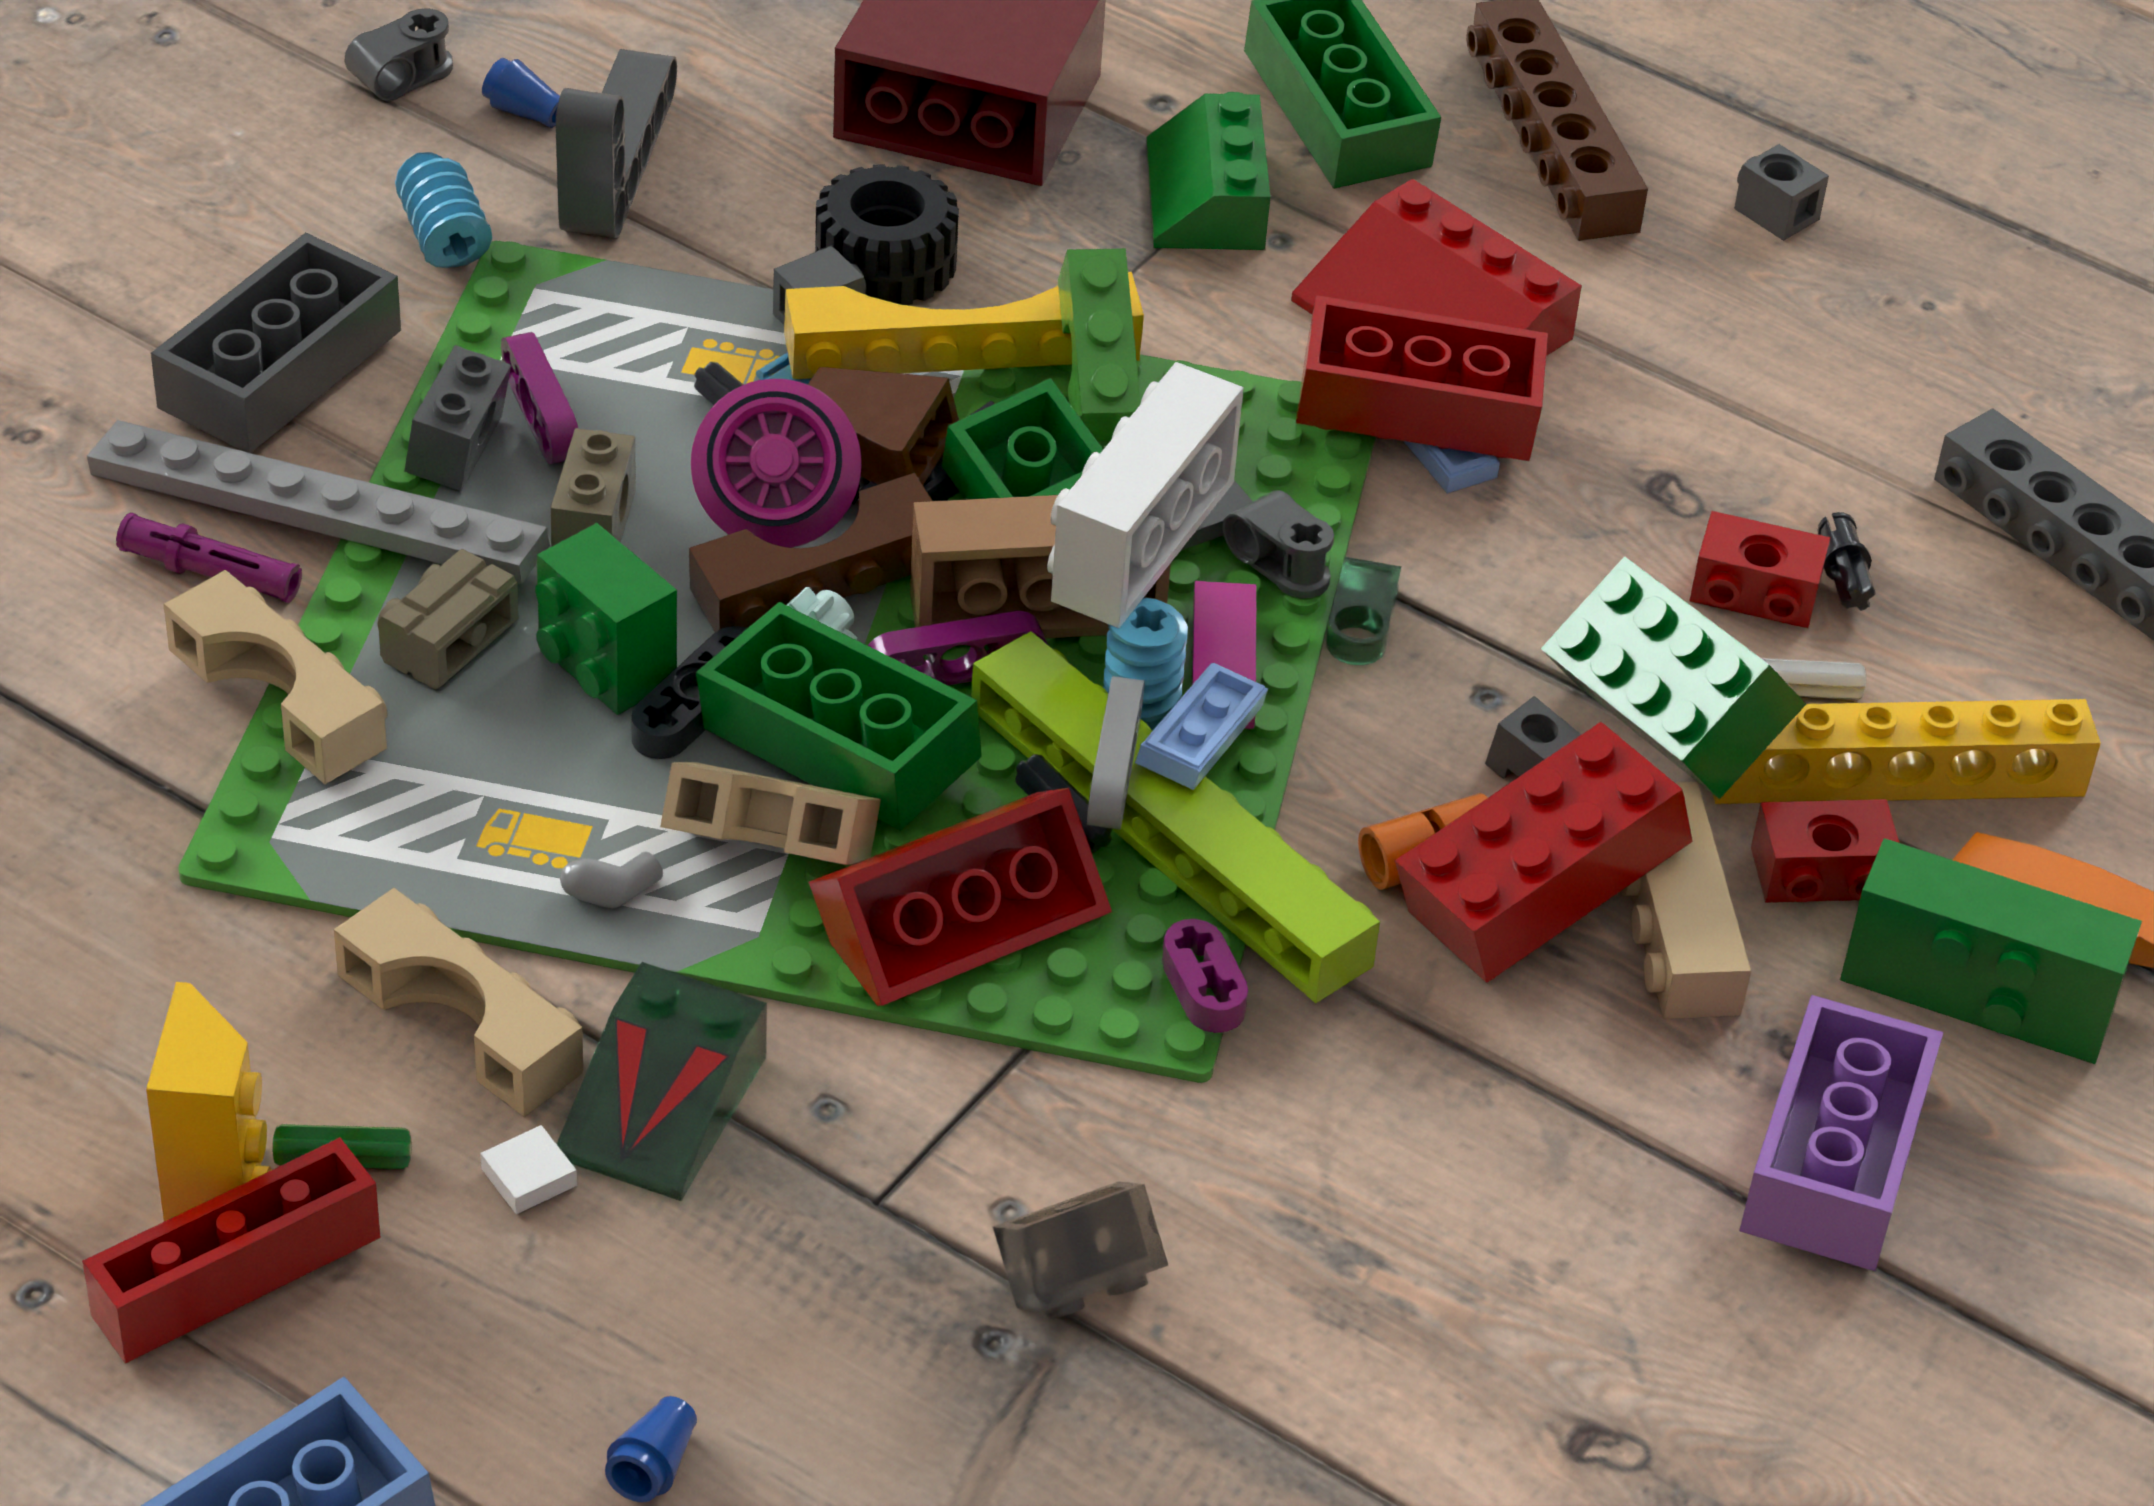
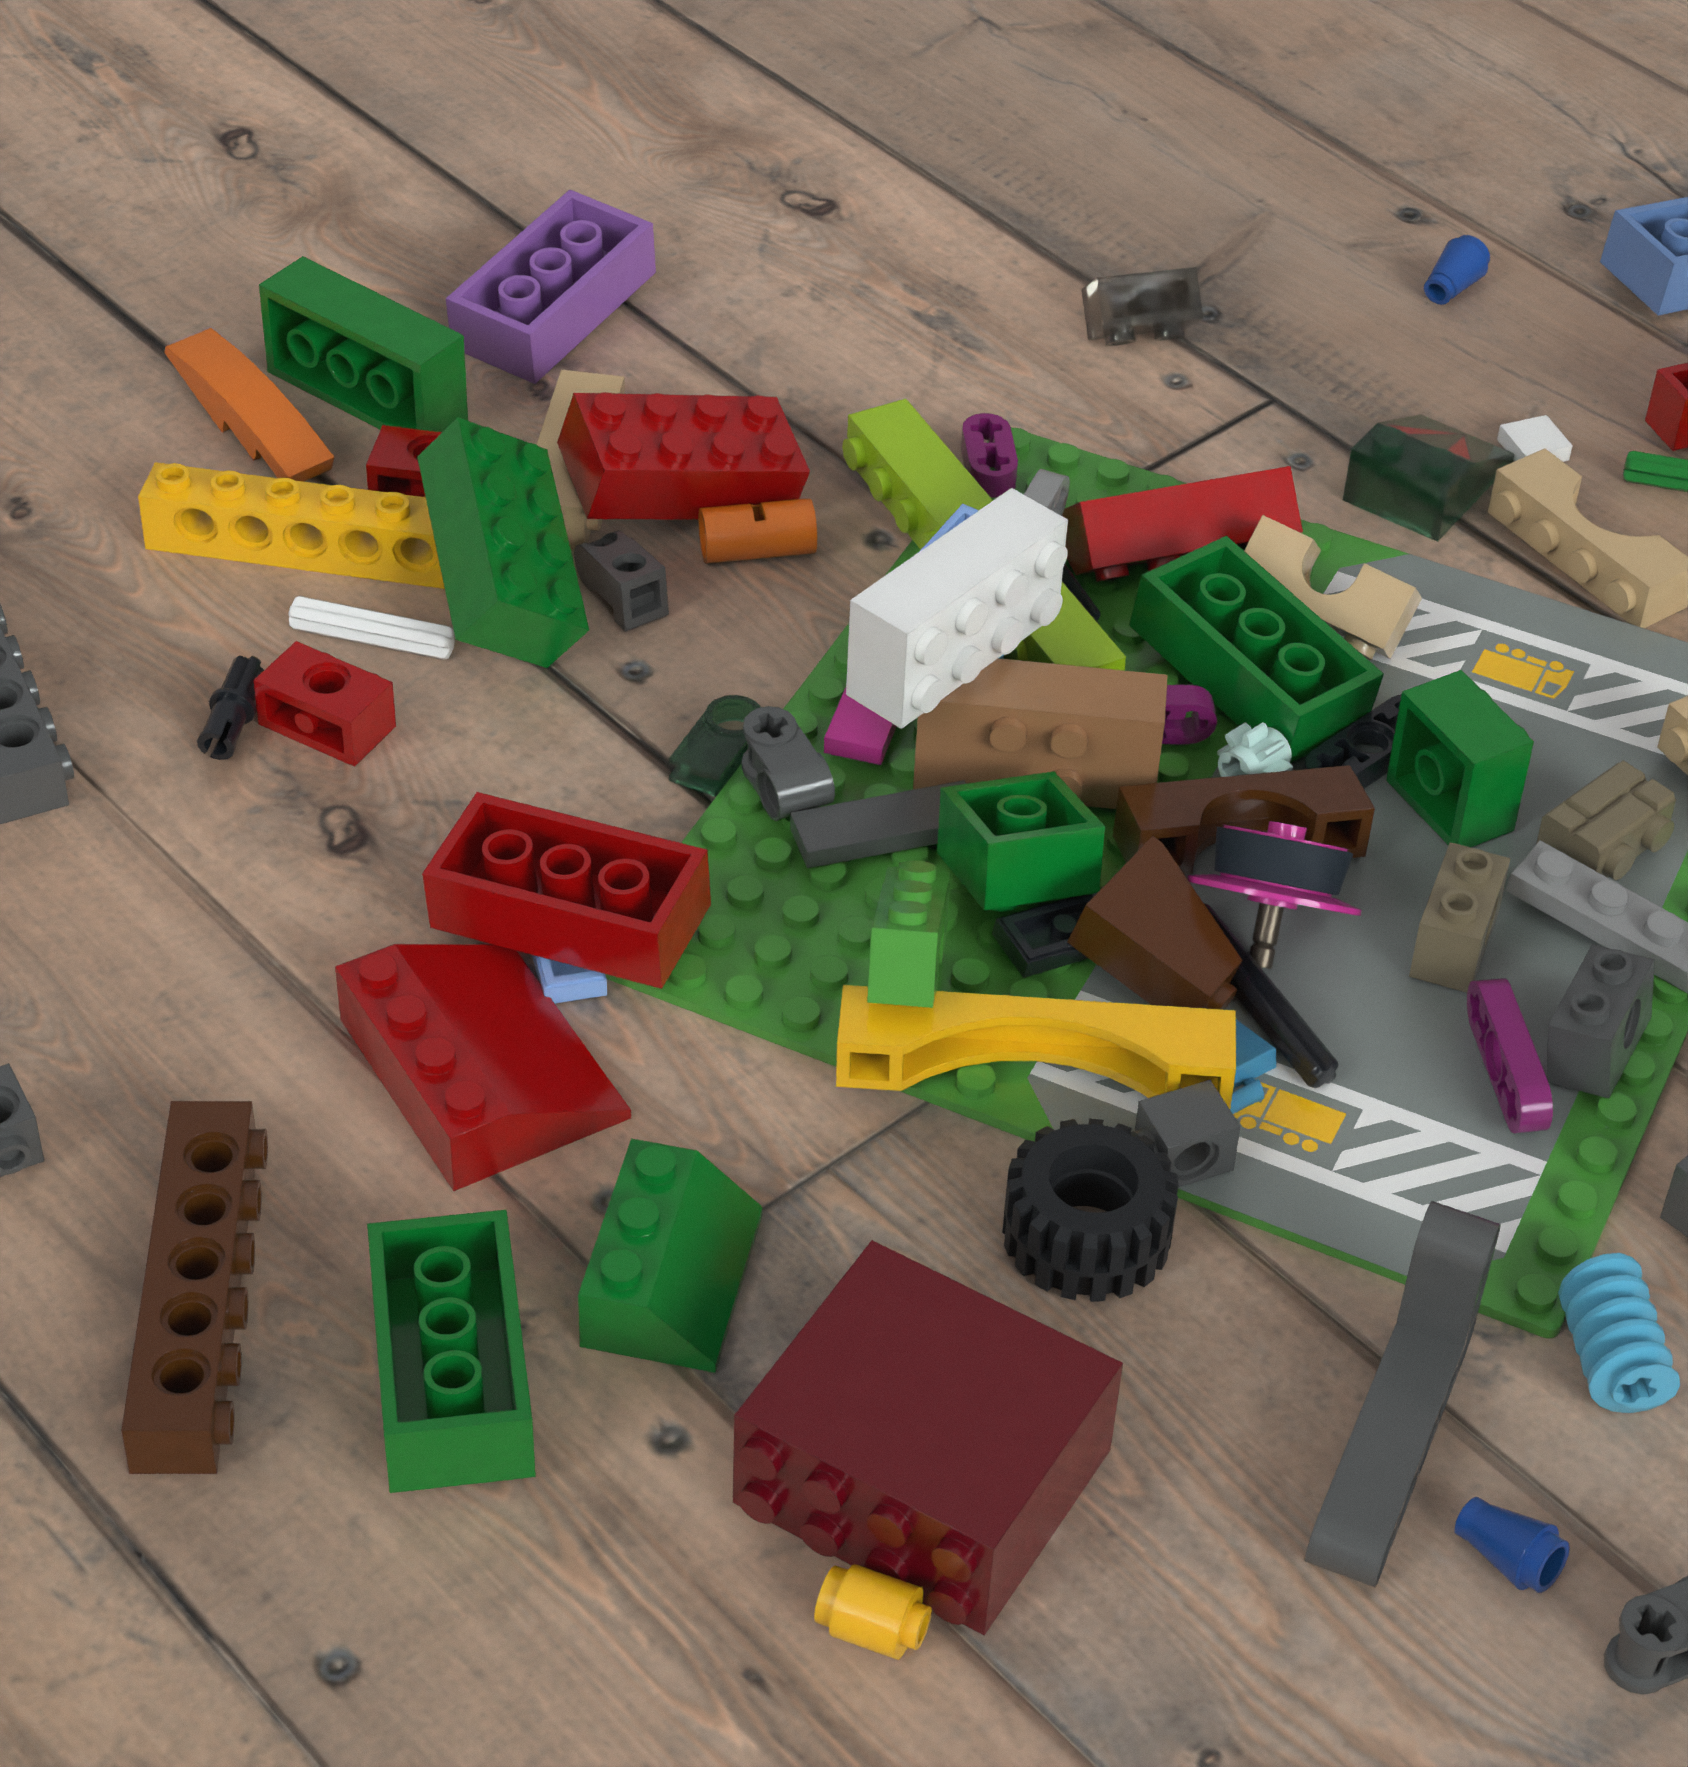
camera: 165 degrees left, 0 degrees up
(607, 883) = (1456, 600): light grey arm -> none

